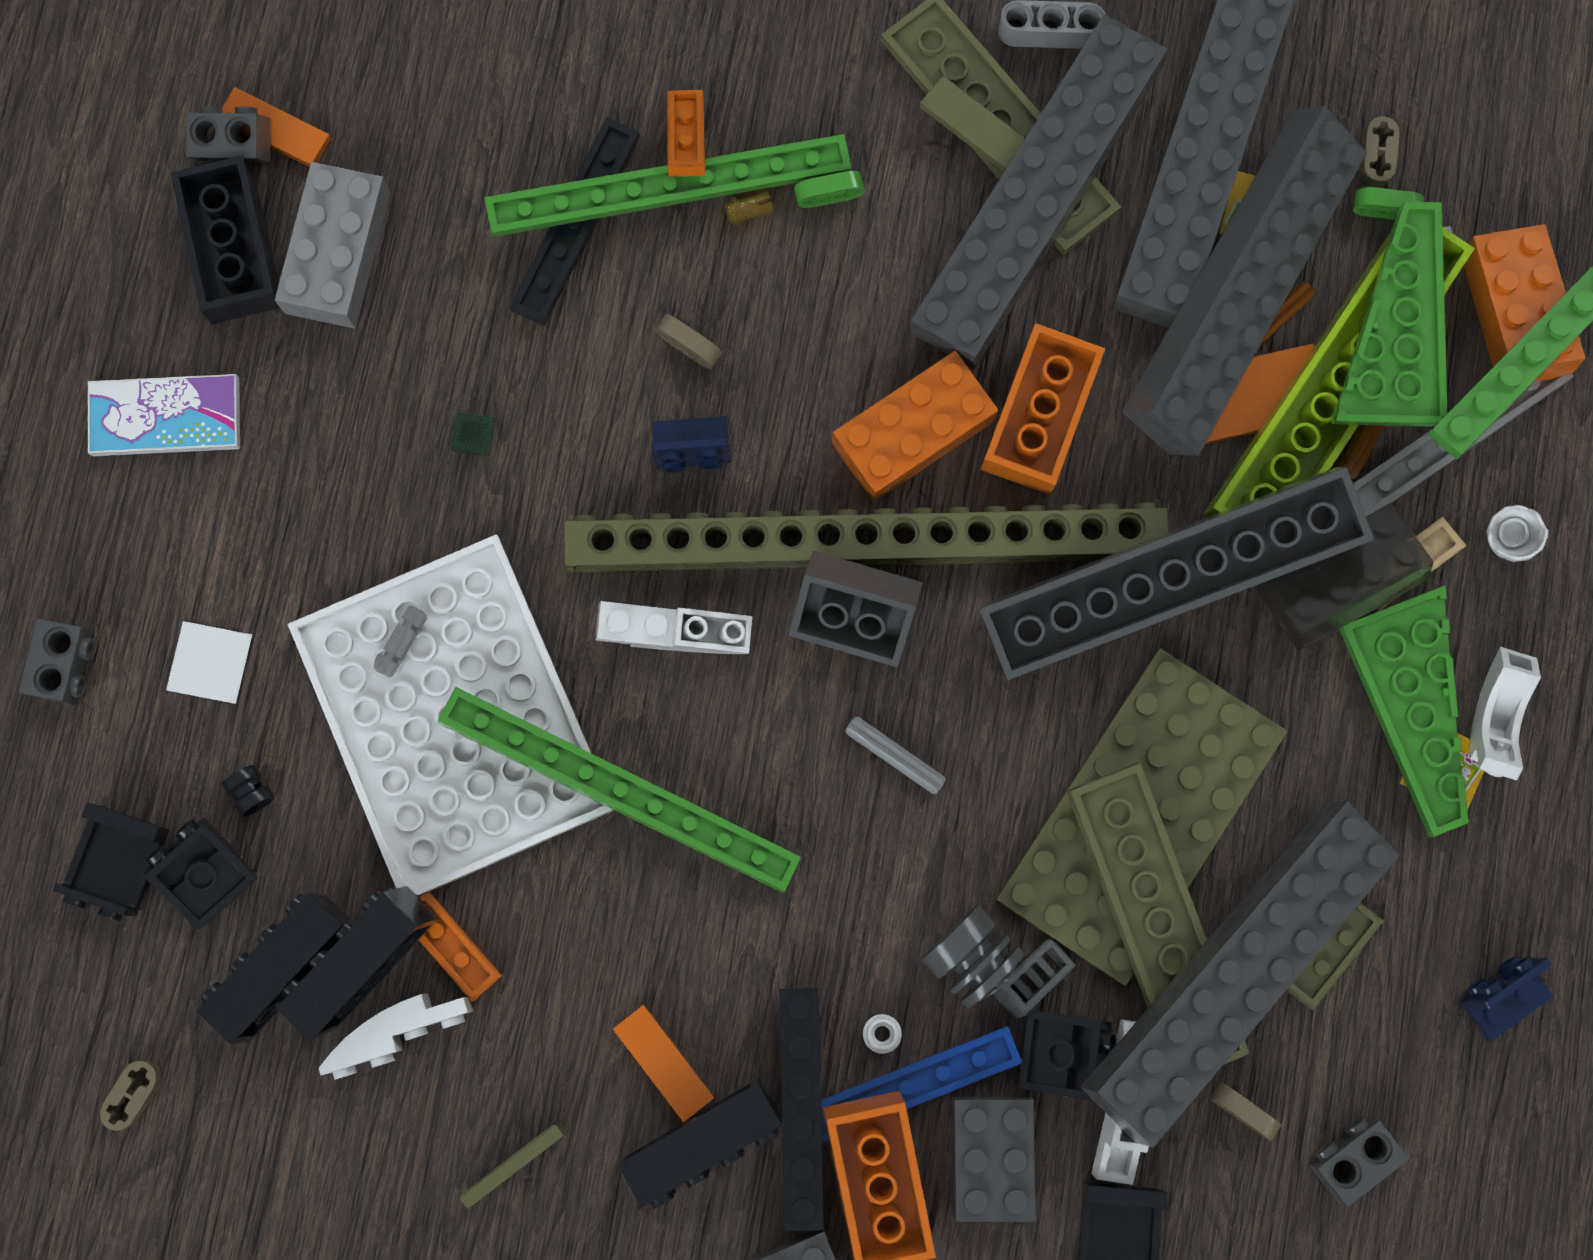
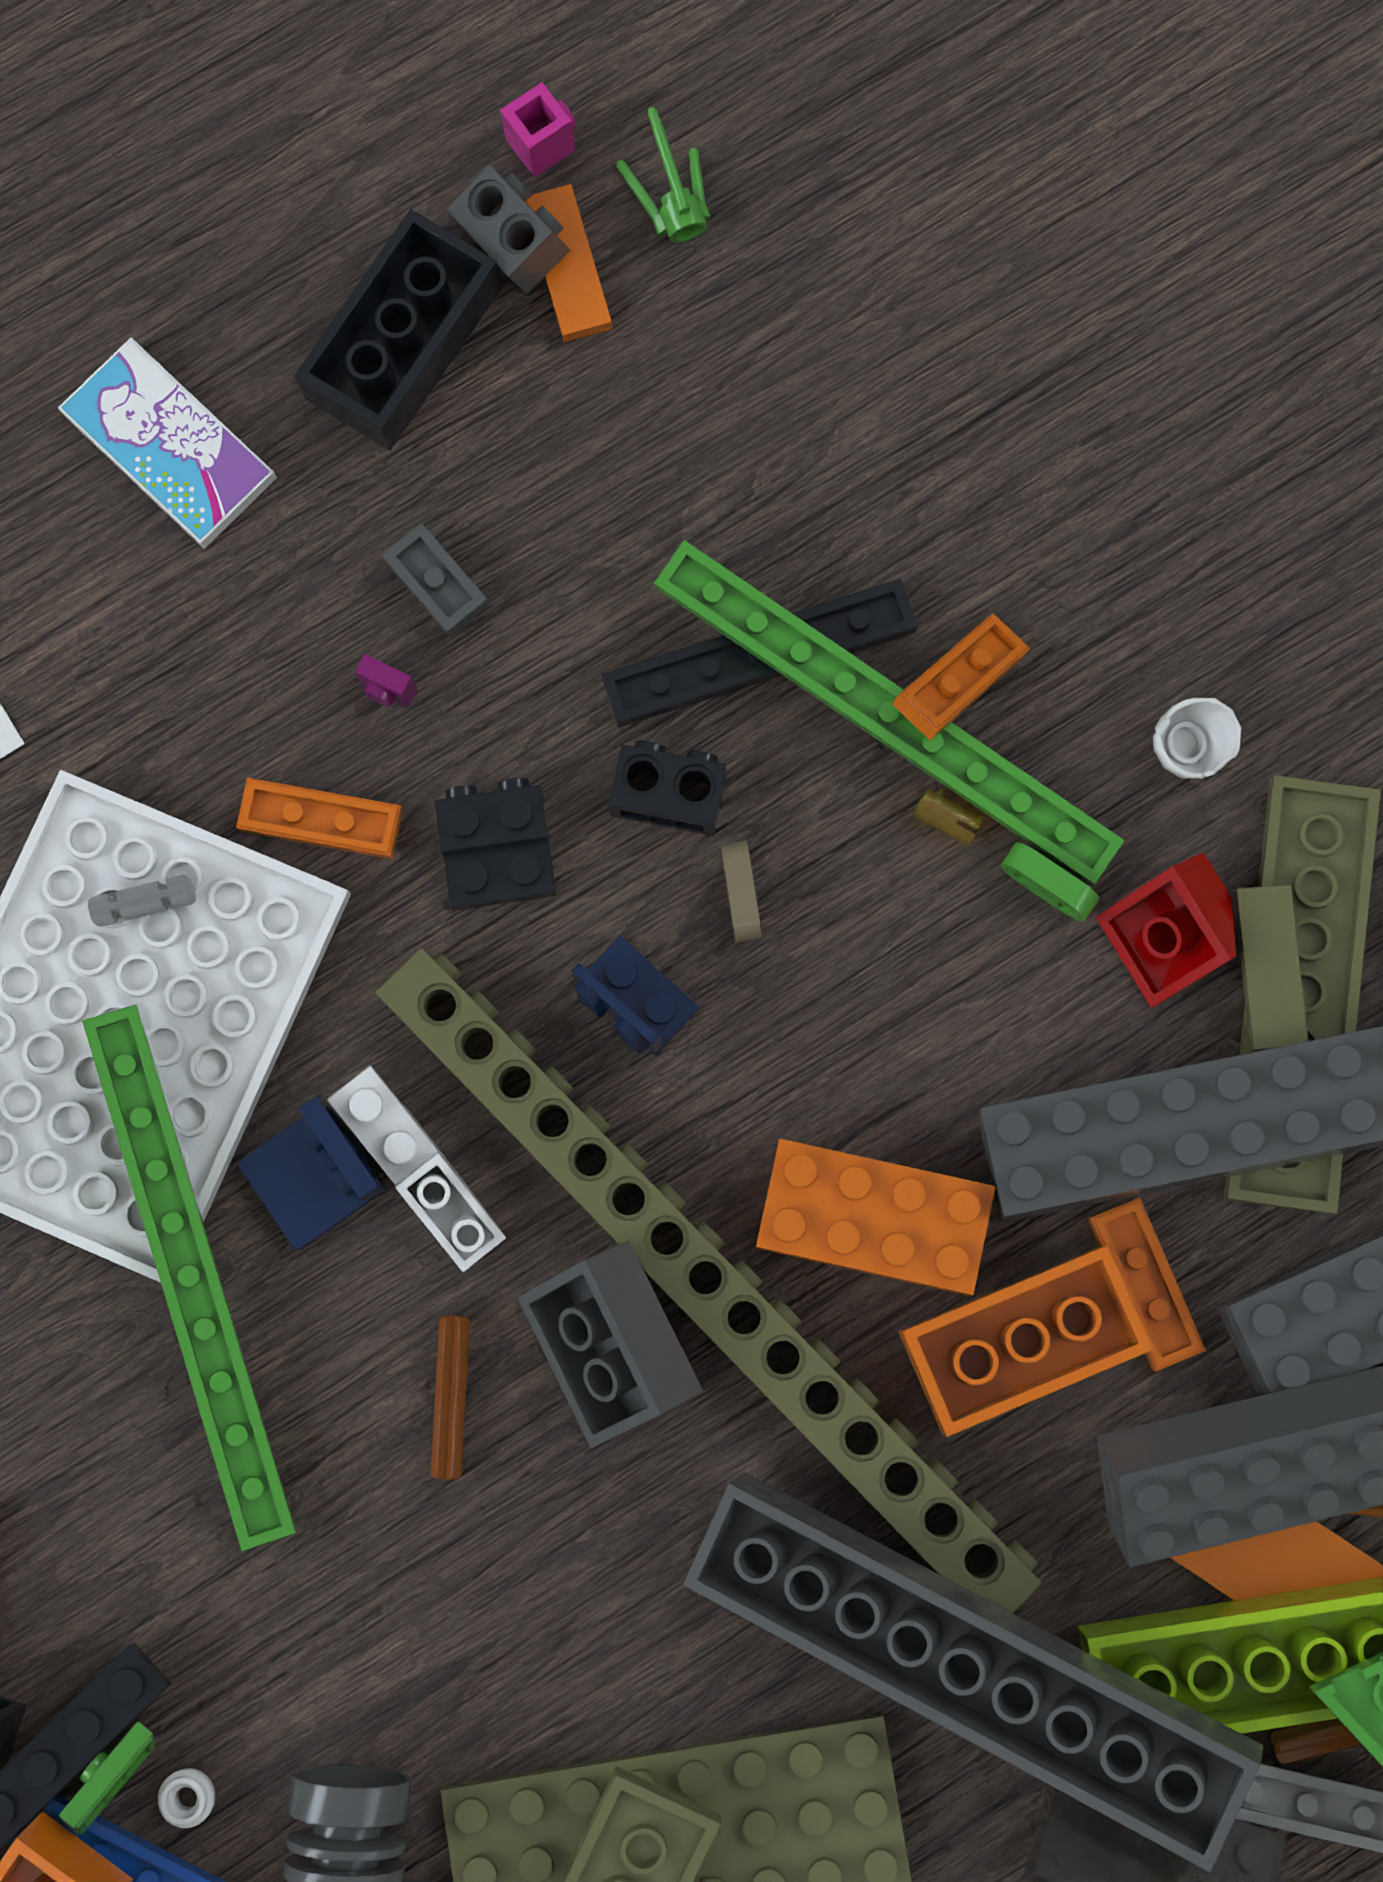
camera: 55 degrees right, 0 degrees up
(190, 74) = (539, 129): none -> dark pink brick
(305, 44) = (682, 214): none -> bright green plant
(333, 245) = (497, 437): light grey brick -> none
(376, 345) = (435, 580): none -> dark grey plate
(406, 418) = (385, 683): none -> magenta plate
(443, 517) = (319, 818): none -> orange tile
(473, 434) = (433, 765): clear green plate -> none
(545, 441) = (495, 844): none -> black plate
(608, 336) = (664, 803): none -> black brick
(626, 685) = (311, 1175): none -> dark blue bracket
(805, 719) = (450, 1397): none -> dark orange axle
(827, 52) = (1197, 738): none -> white hair
(835, 1061) = (106, 1777): none -> bright green plate
(895, 755) = (499, 1532): light grey axle -> none
(910, 153) = (1173, 929): none -> red slope
(1072, 323) = (1149, 1283): none -> orange tile

